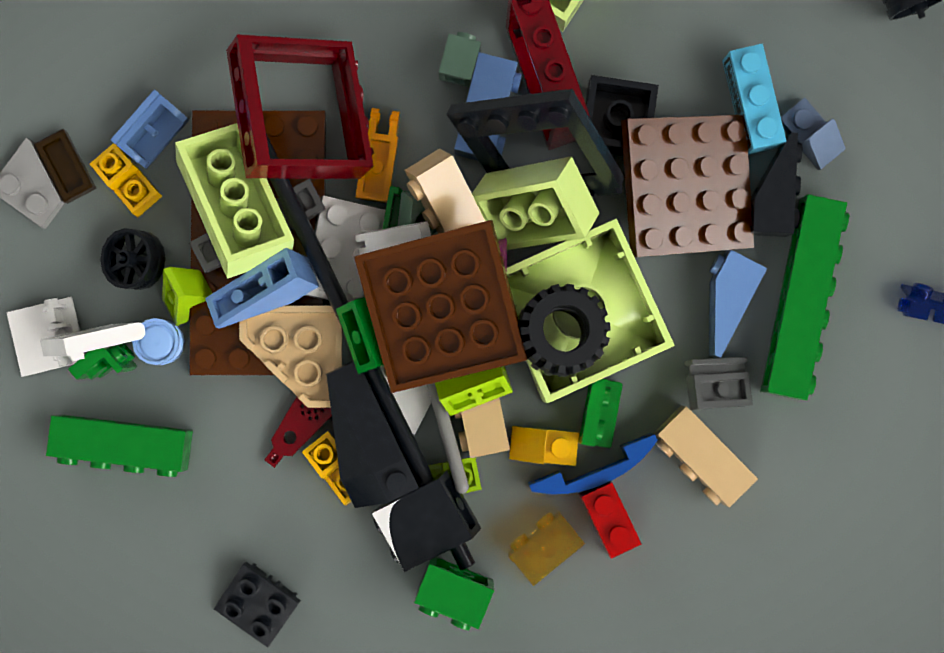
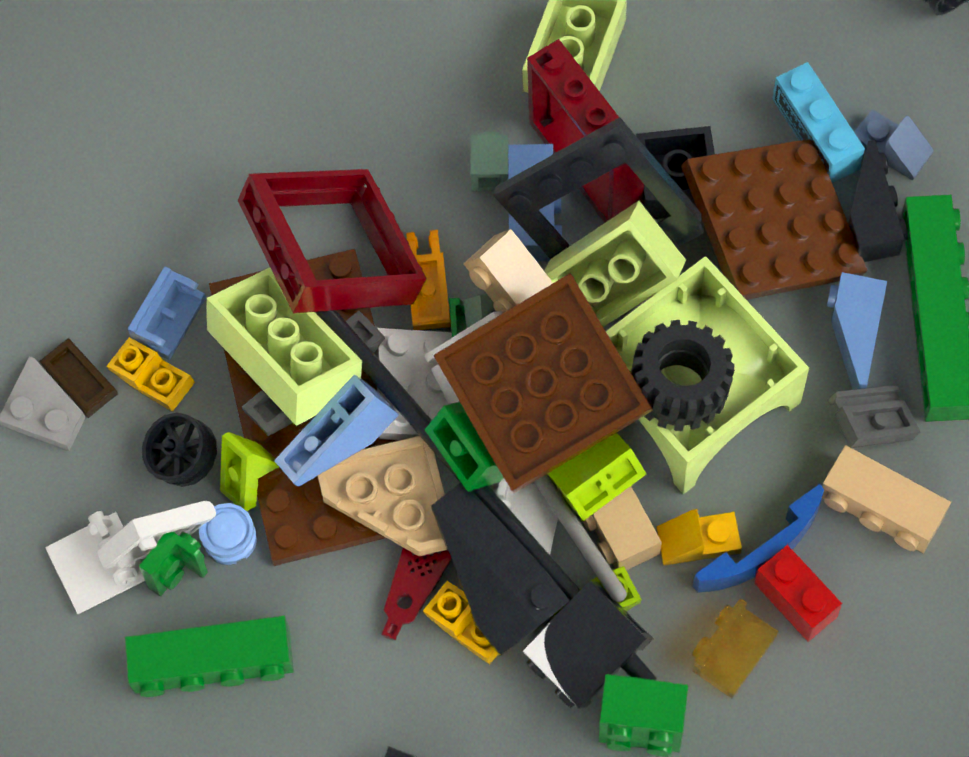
camera: 10 degrees left, 20 degrees down
(600, 413) = (751, 482): green bracket -> none

